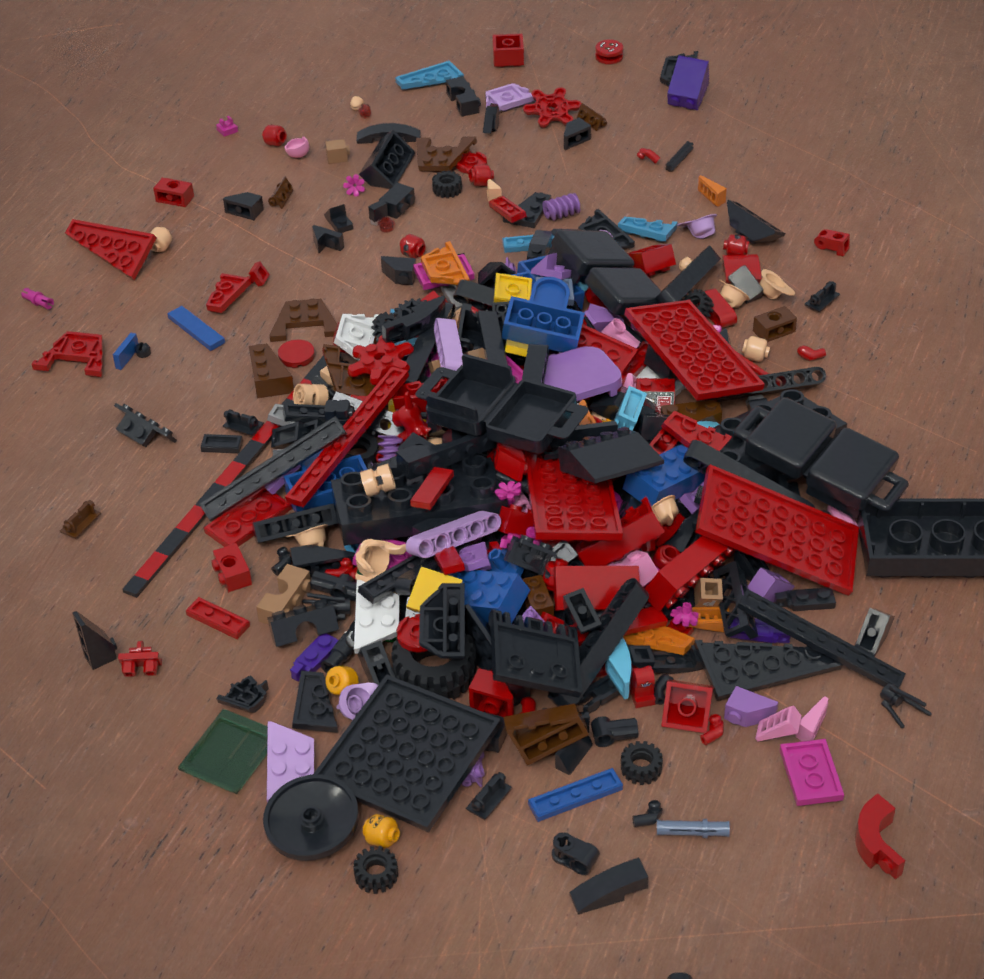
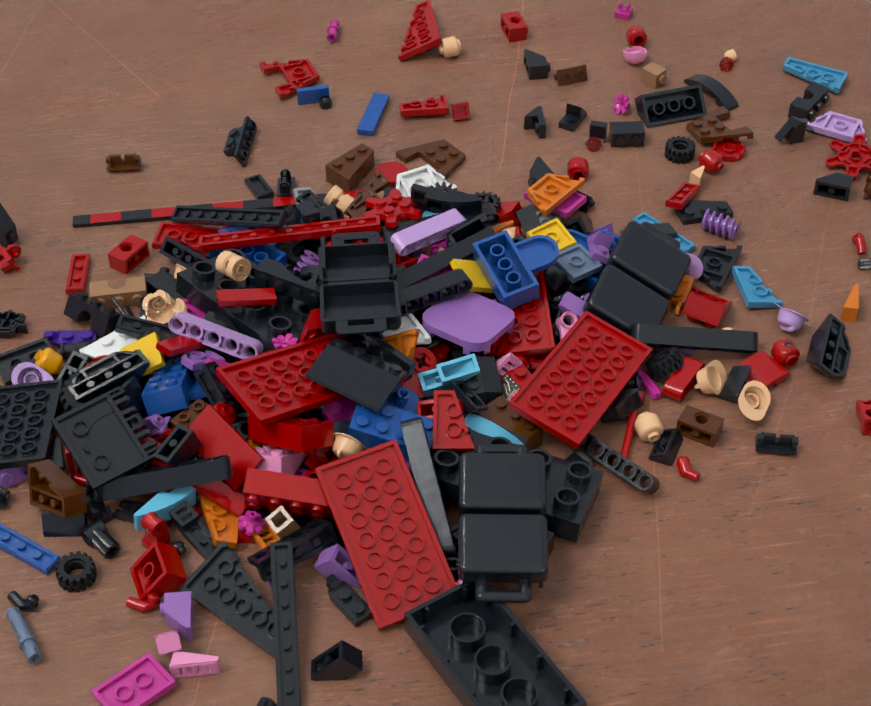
camera: 55 degrees right, 0 degrees up
(779, 354) = (667, 447): none -> black slope

